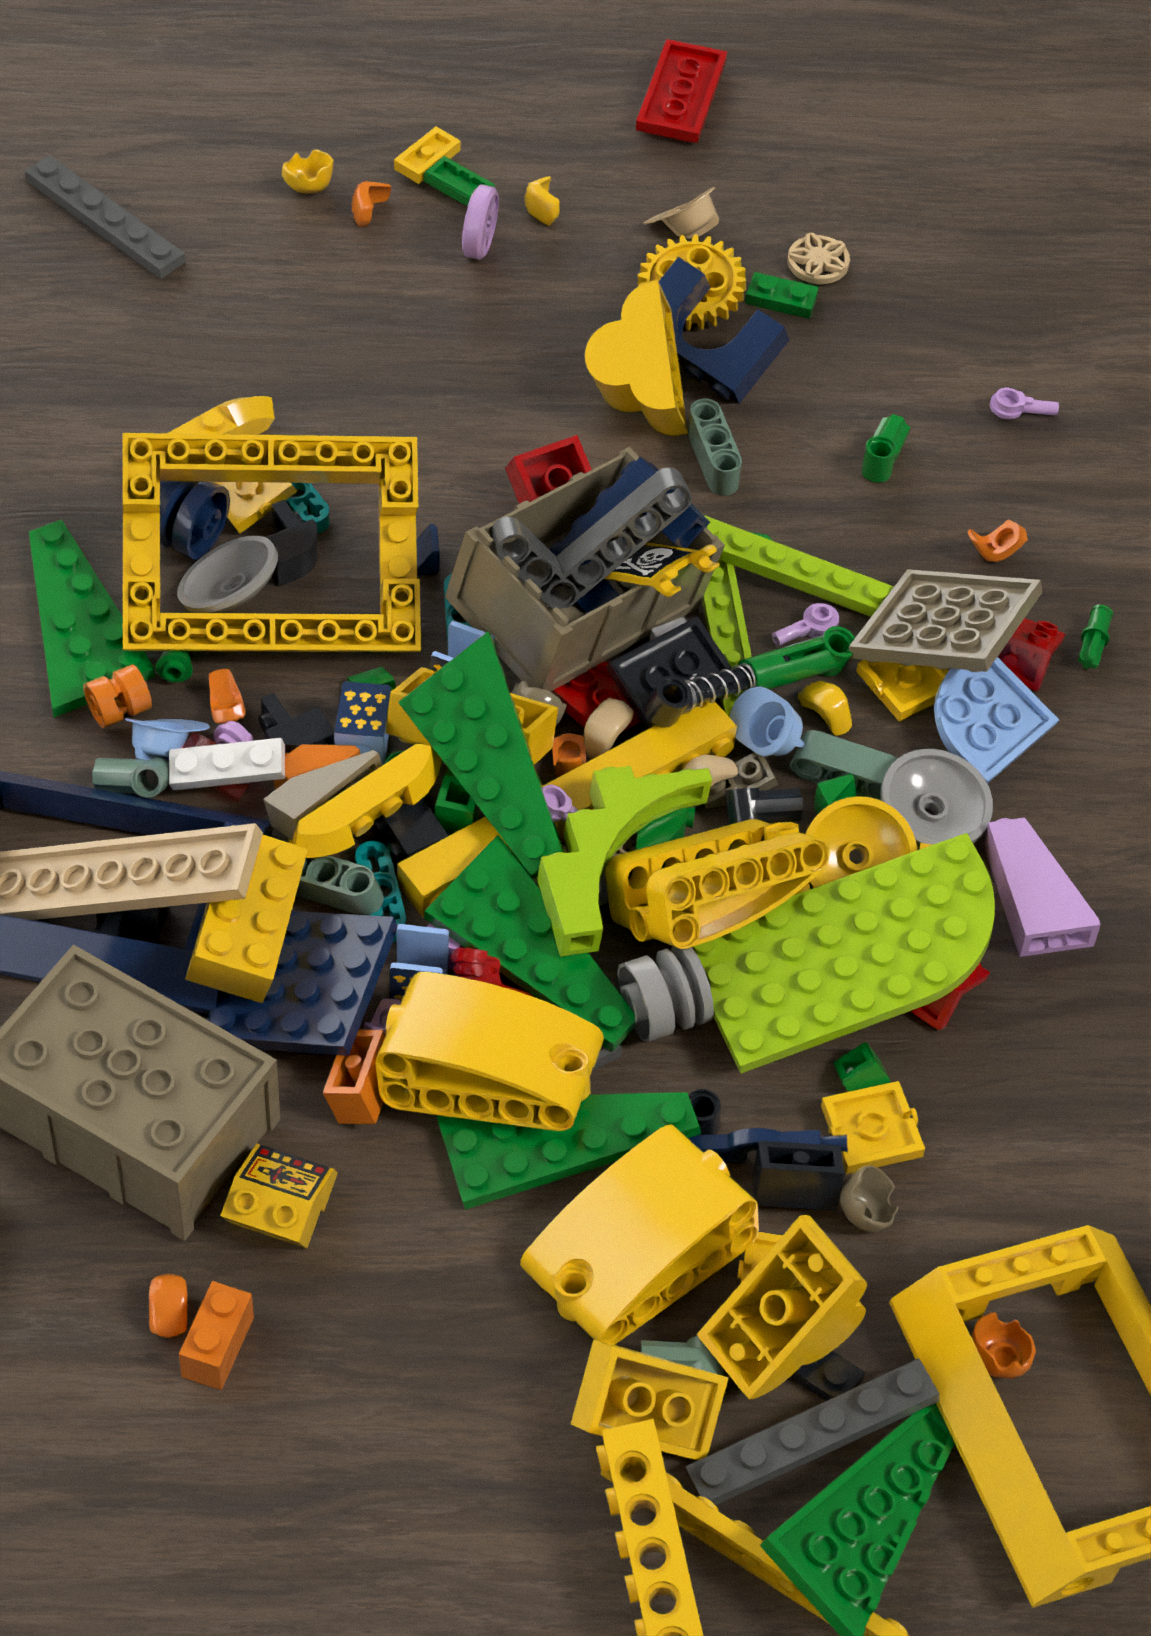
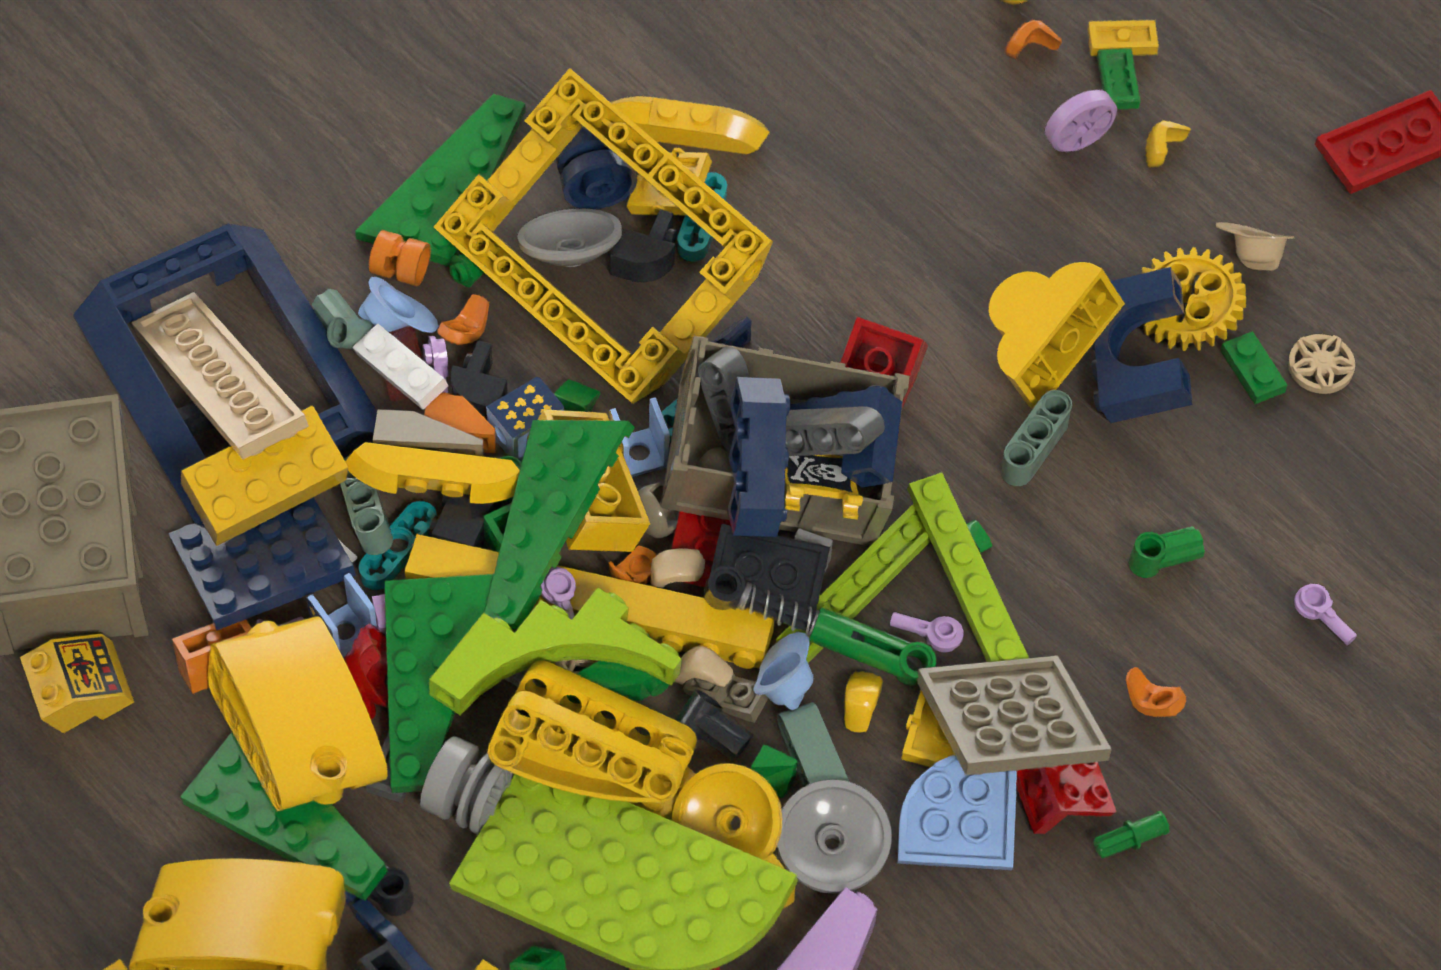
camera: 50 degrees right, 5 degrees up
(611, 575) = (758, 456): none -> dark blue brick

